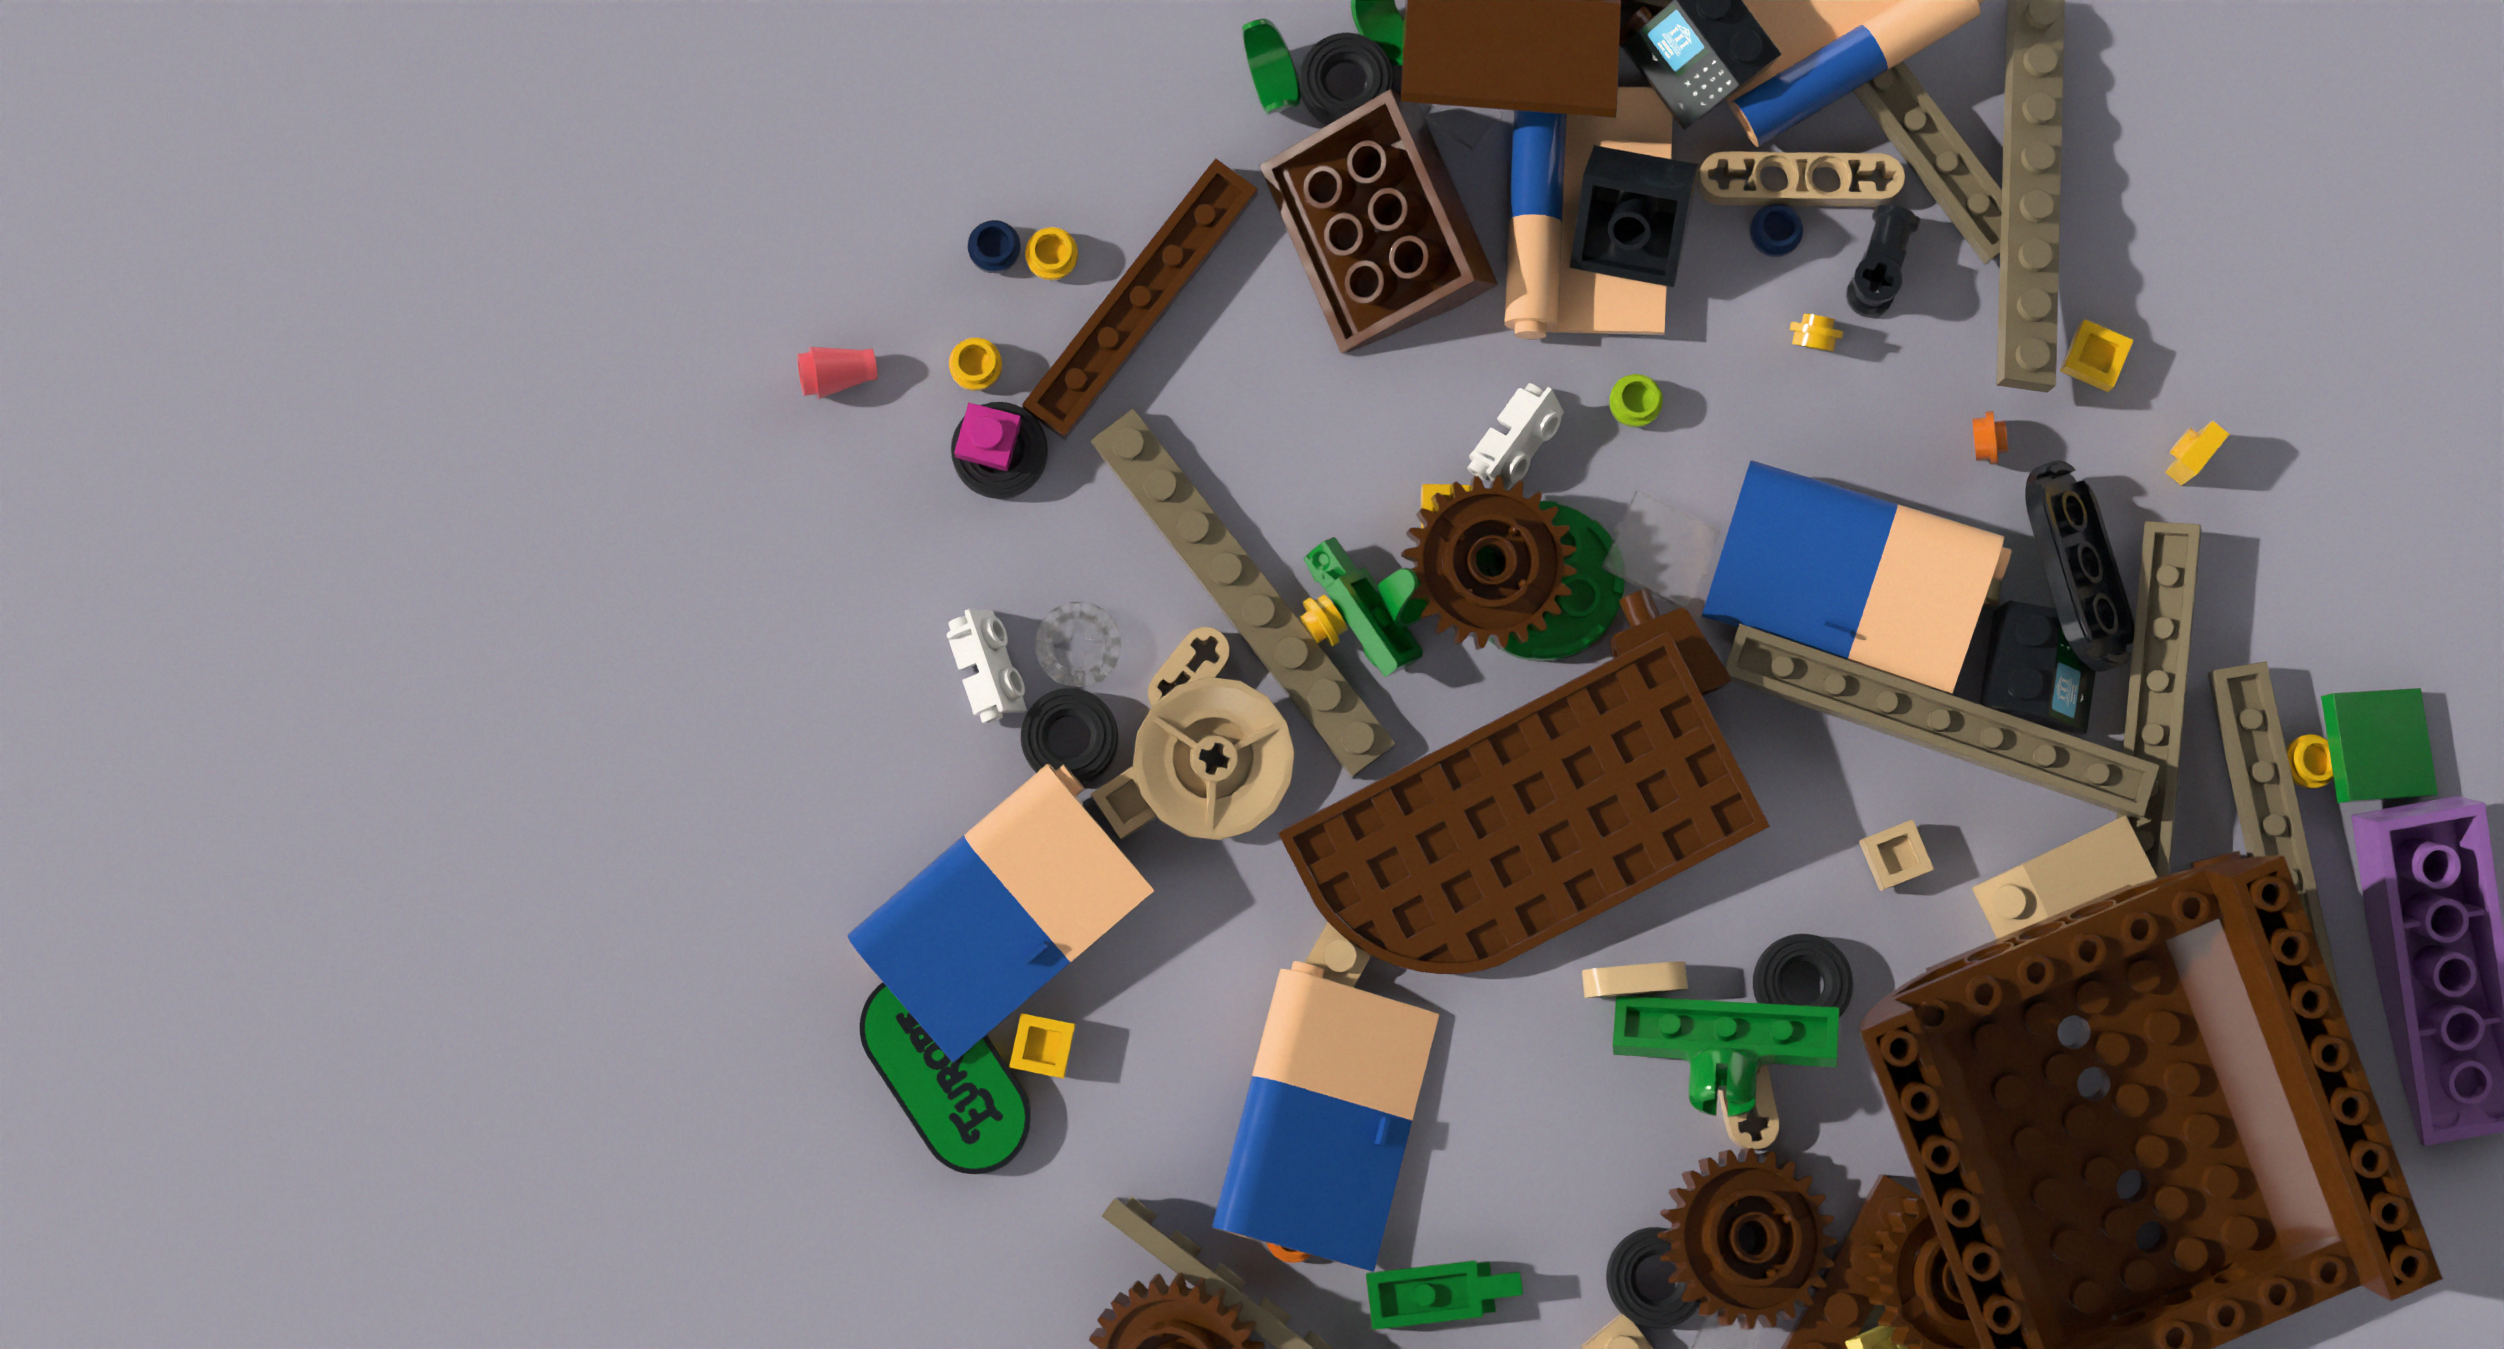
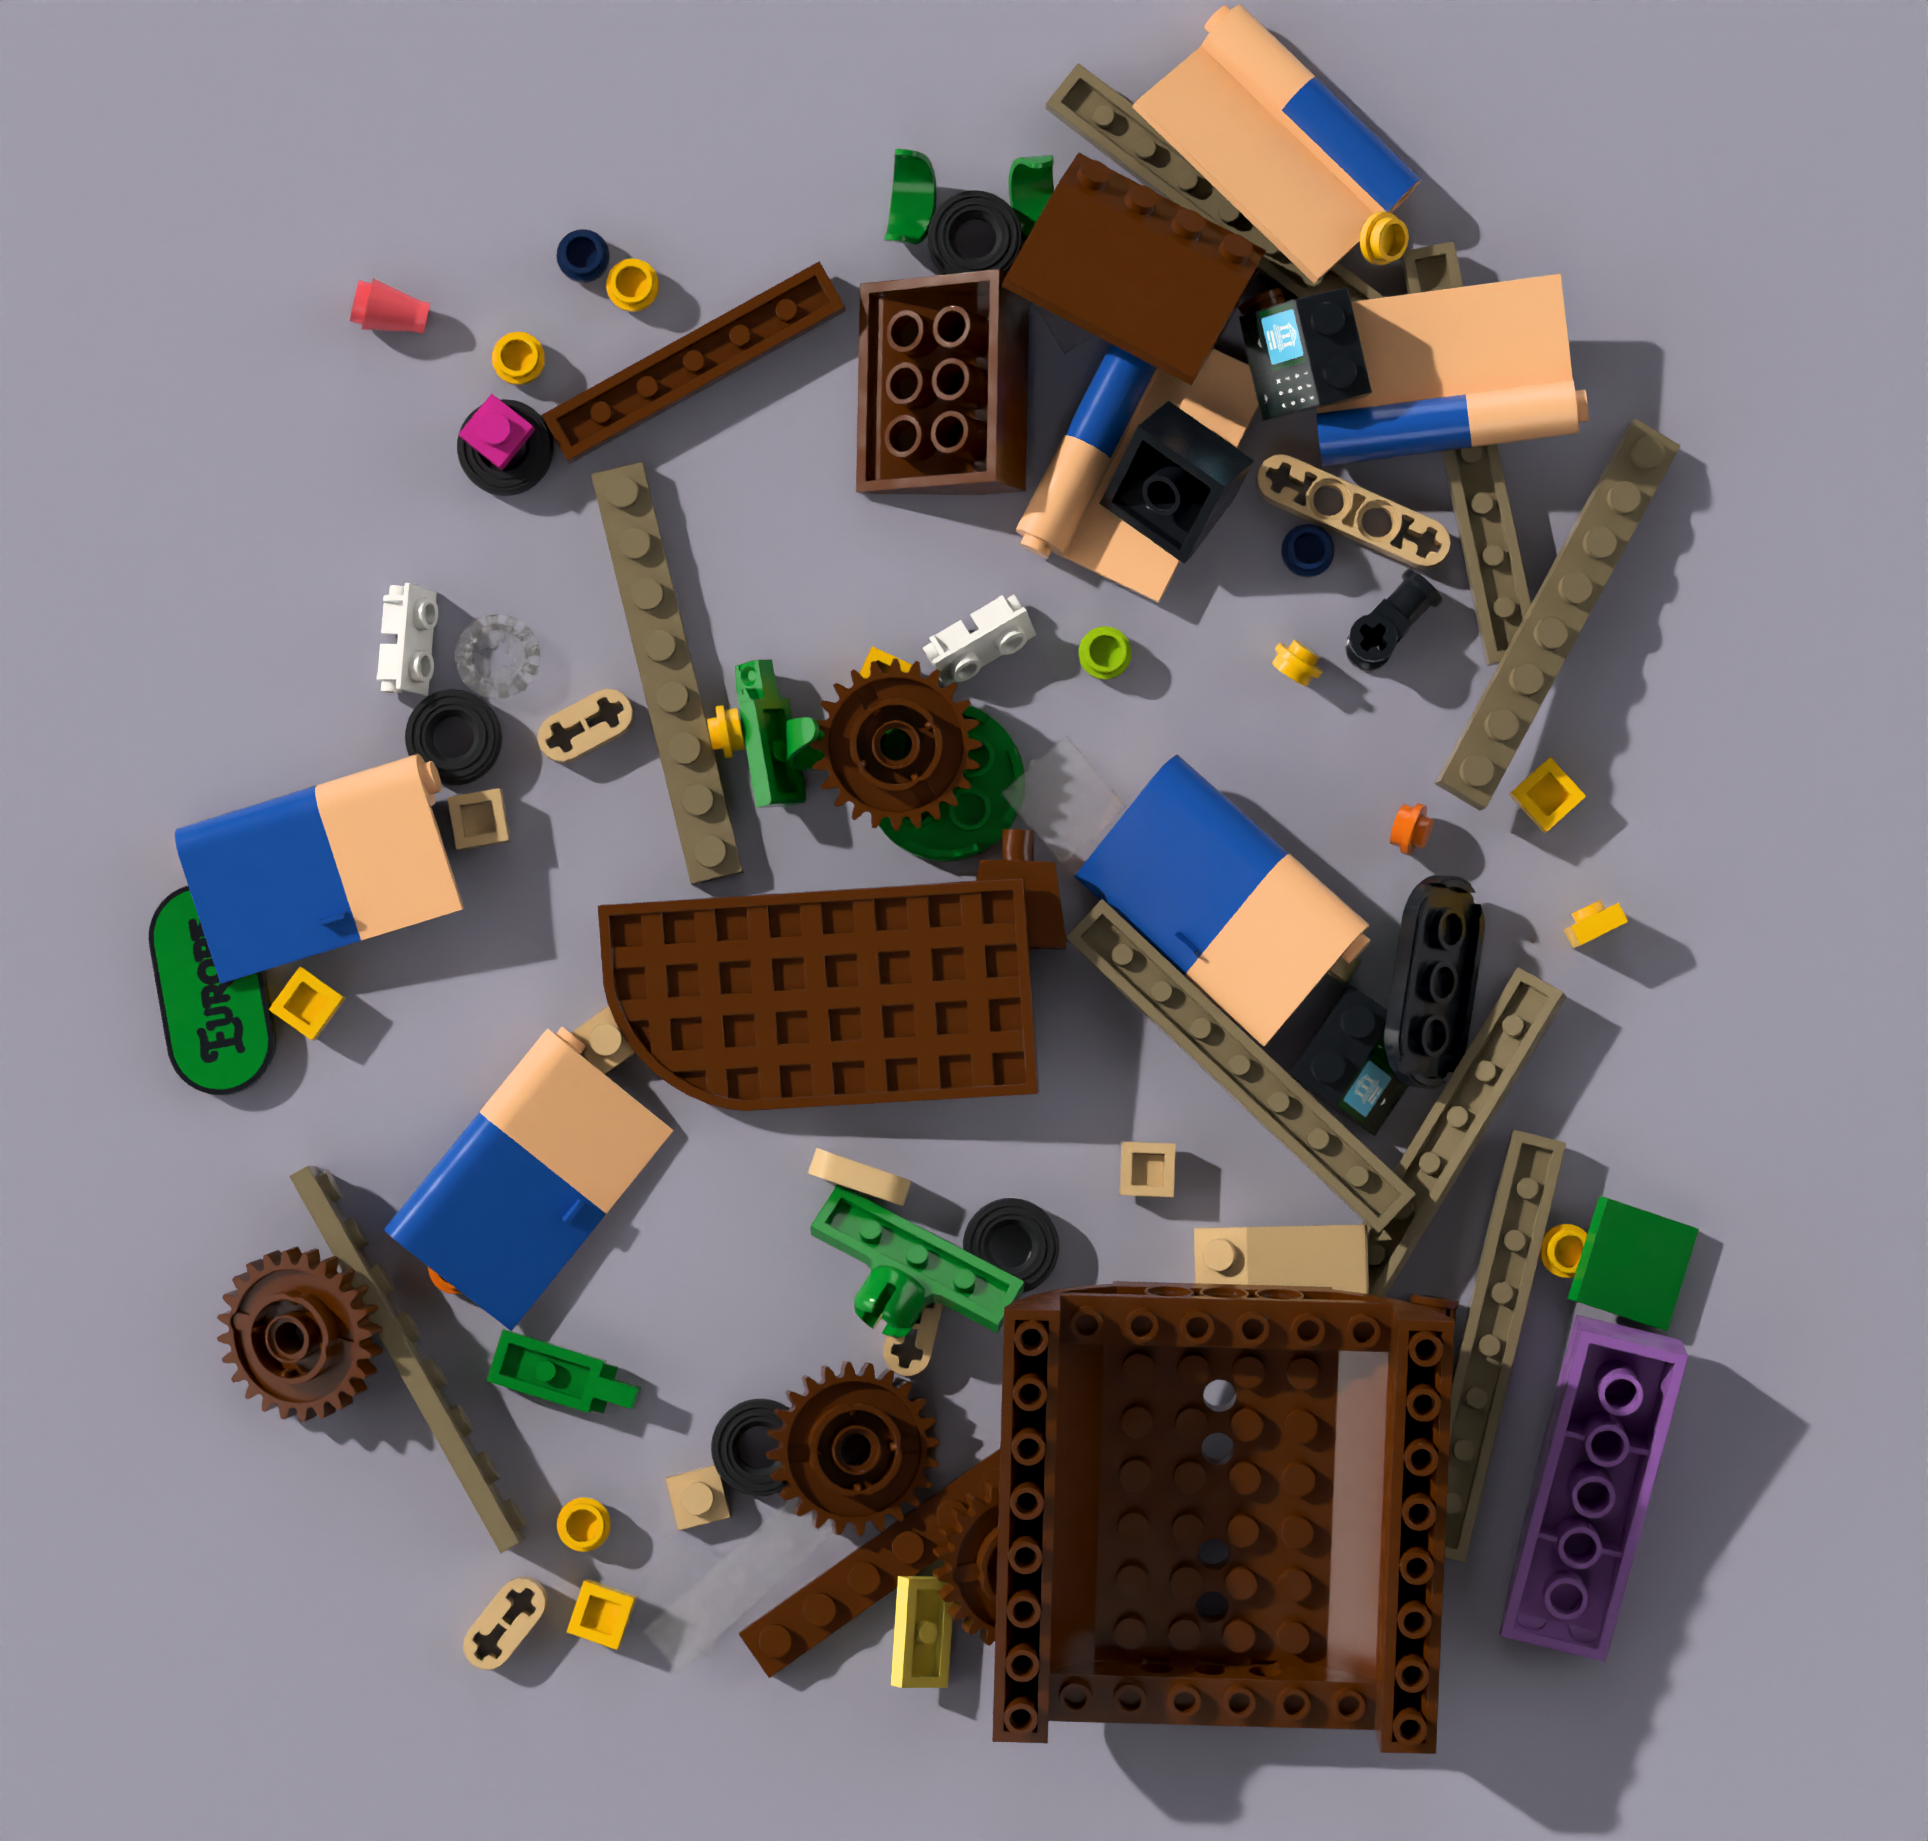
camera: 30 degrees right, 5 degrees up
(1232, 795) = (571, 854): tan piece -> none

